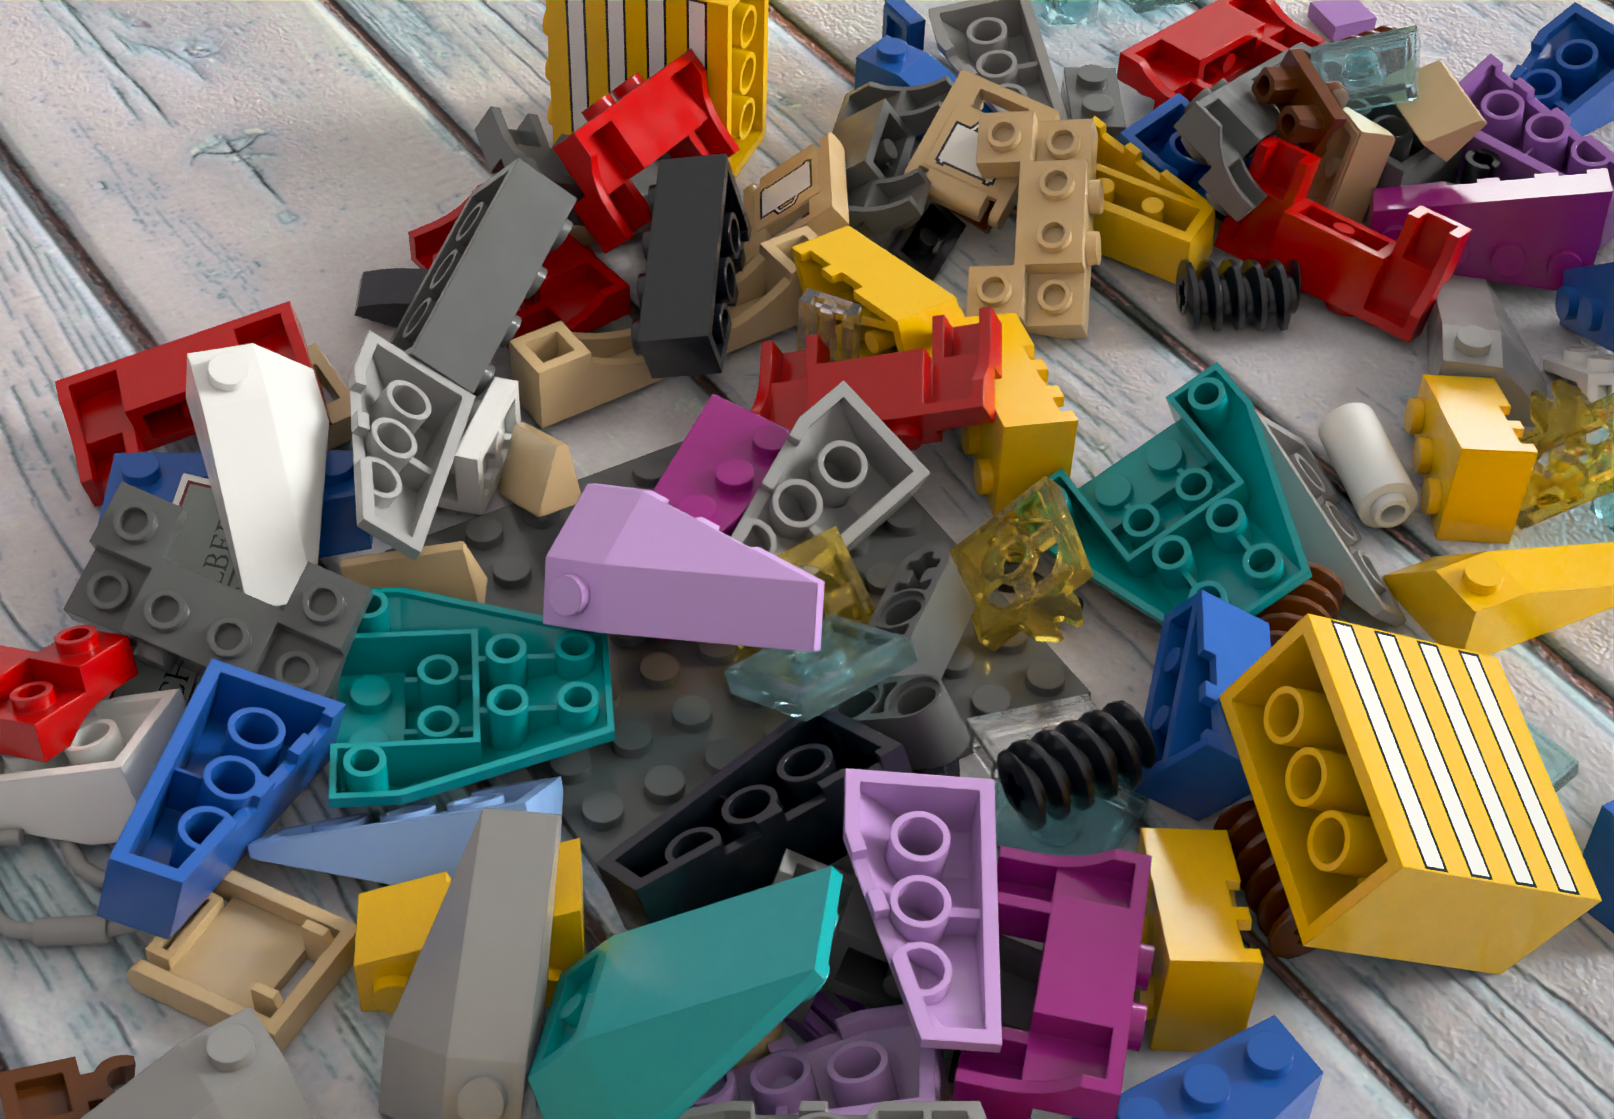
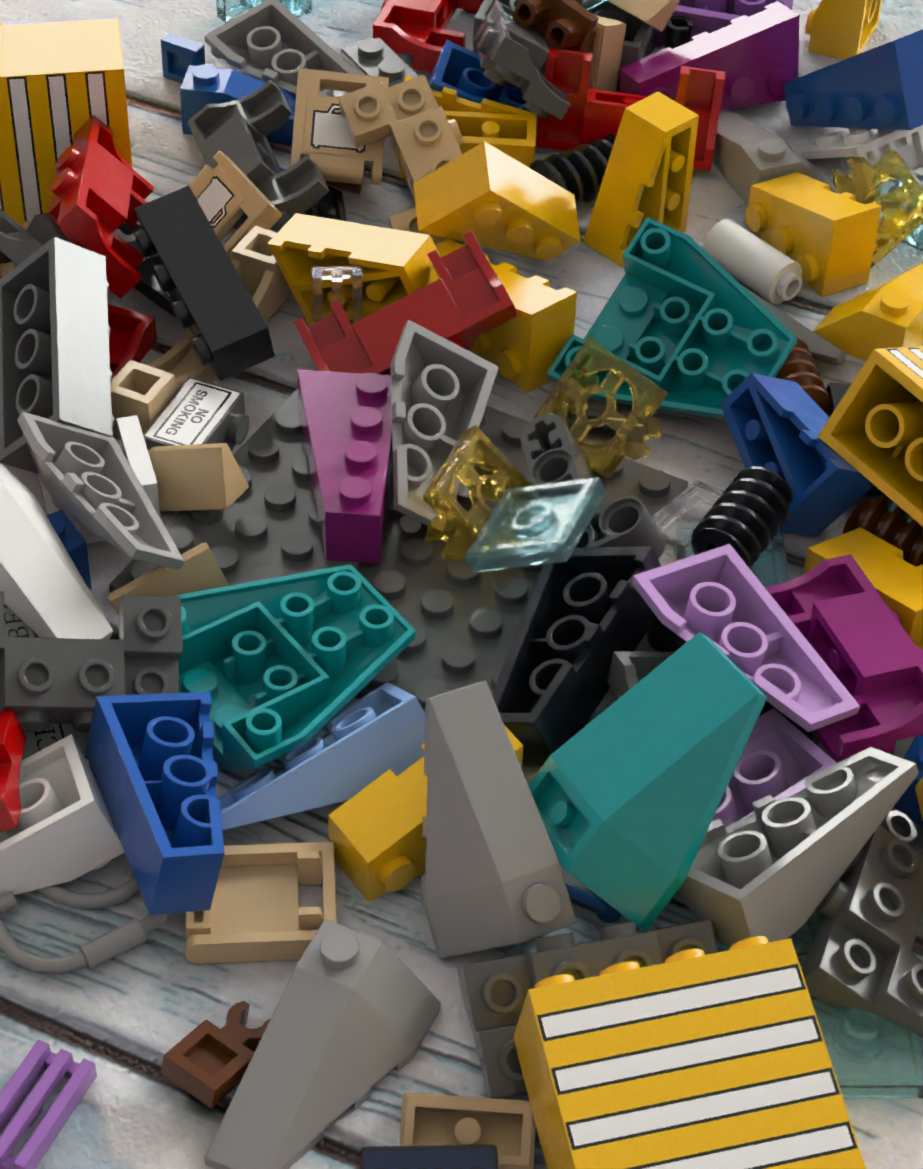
camera: 30 degrees left, 0 degrees up
(599, 416) = (200, 415): none -> brick
(658, 573) = (381, 503): lavender wedge -> none
(1090, 294) = (501, 204): none -> yellow wedge
(1290, 319) = (645, 175): none -> yellow wedge

